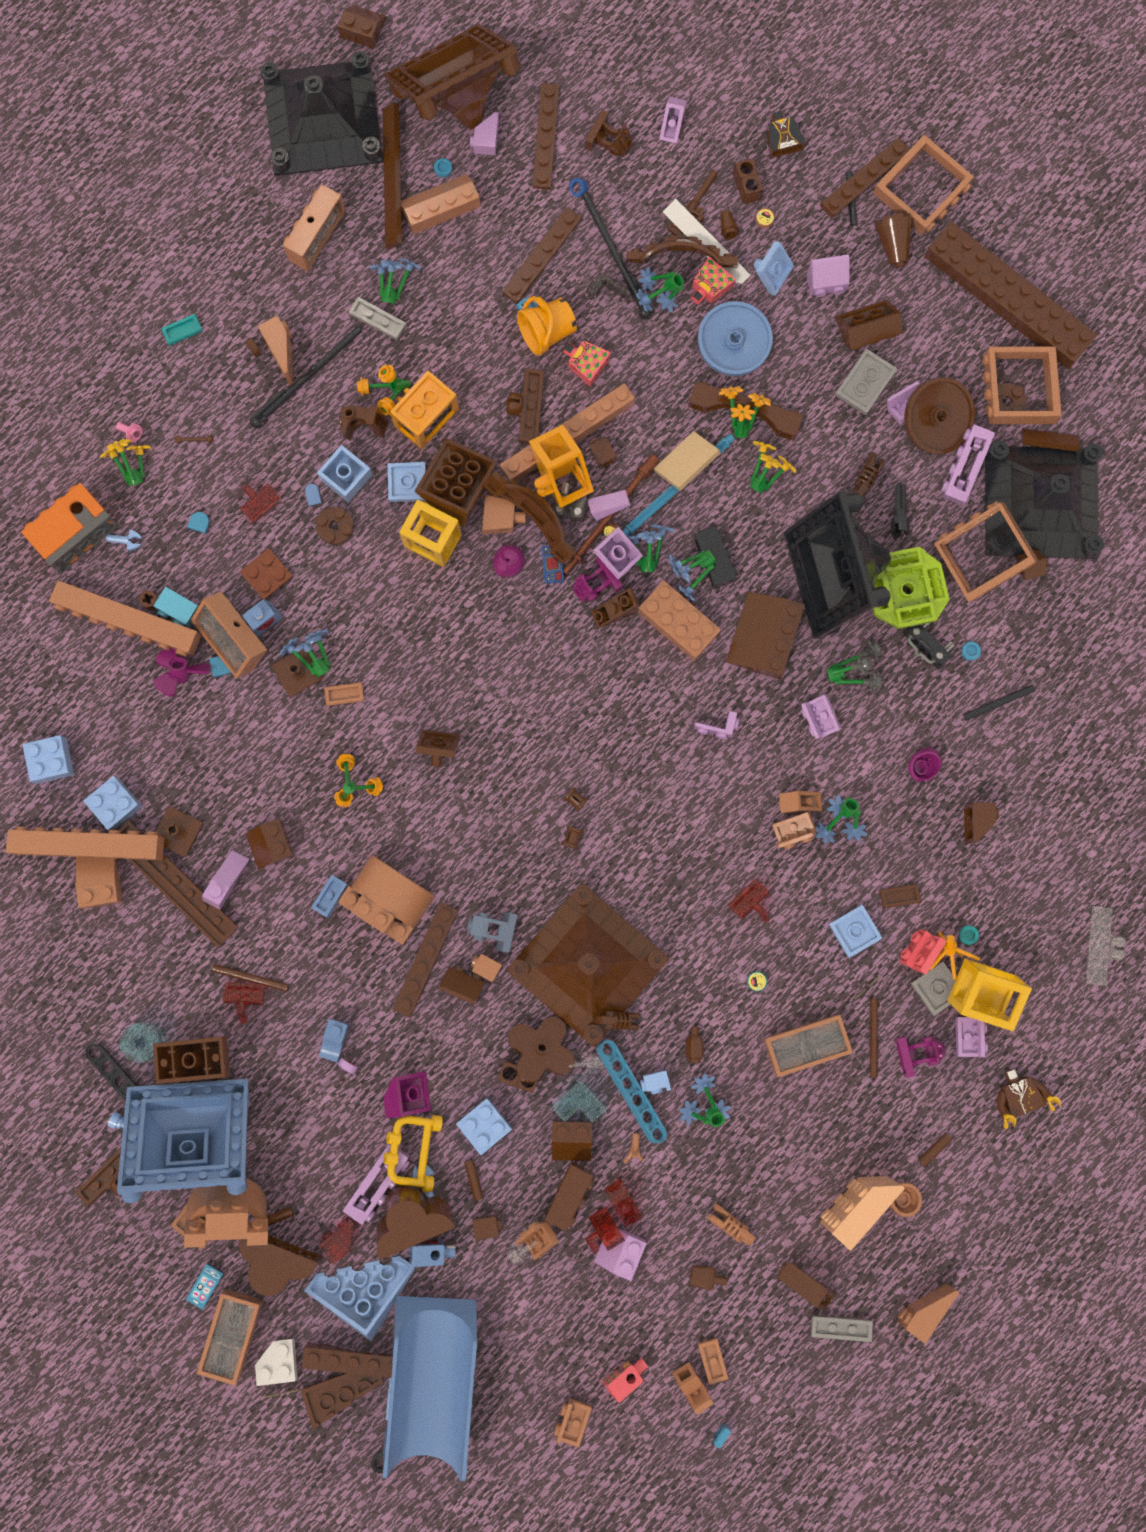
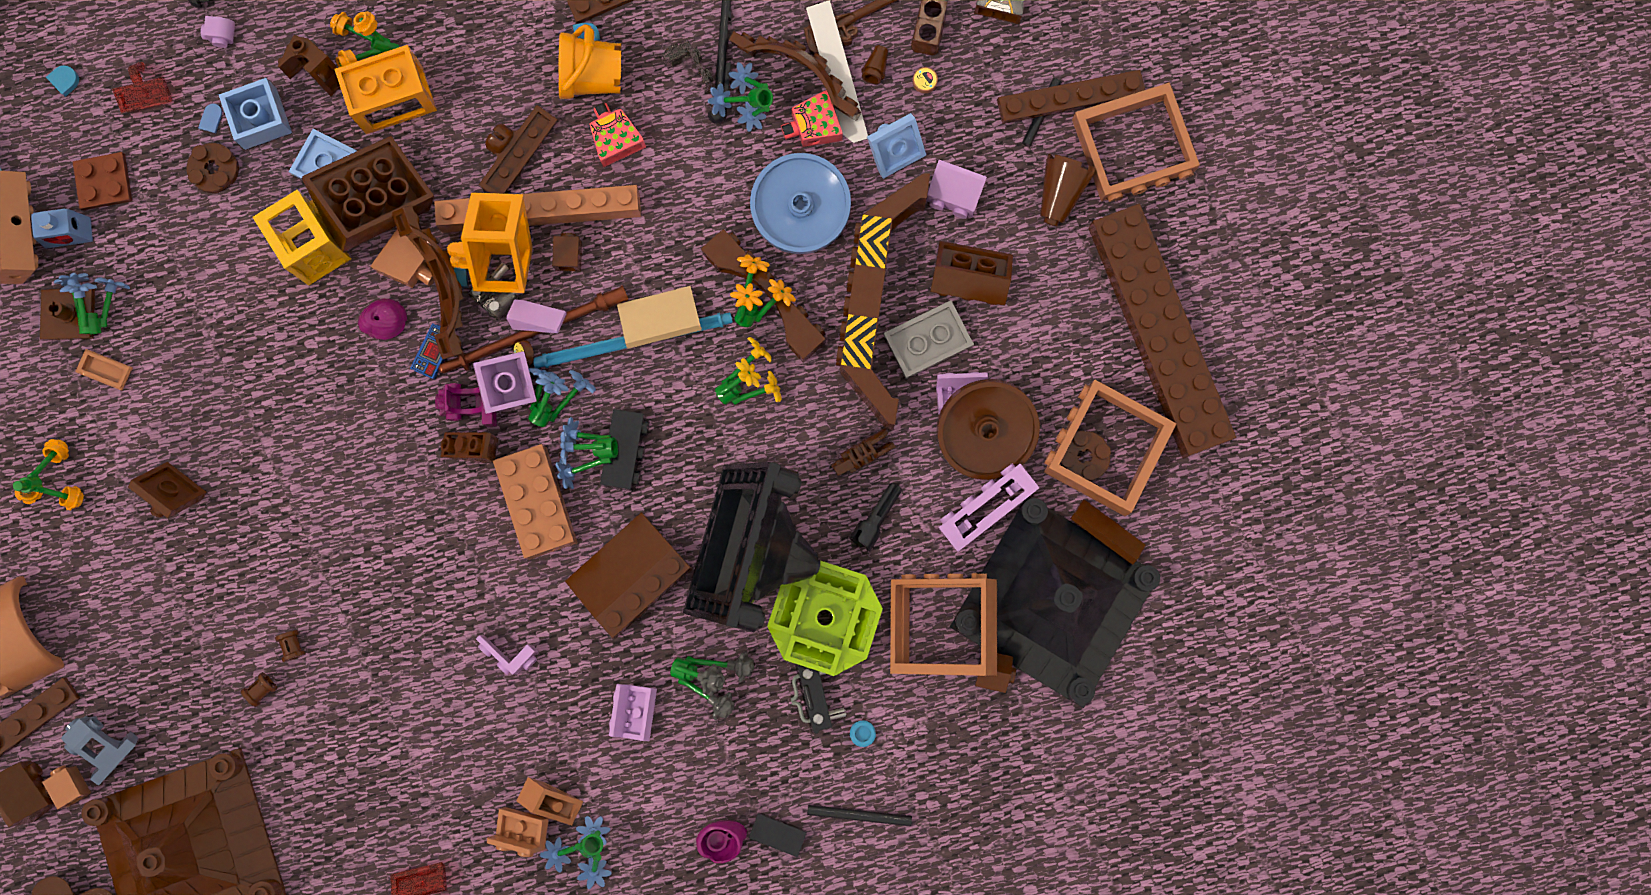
camera: 30 degrees right, 0 degrees up
(285, 434) = (218, 31): none -> lavender plate
(816, 379) = (866, 293): none -> reddish brown slope
(955, 742) = (778, 834): none -> black tile

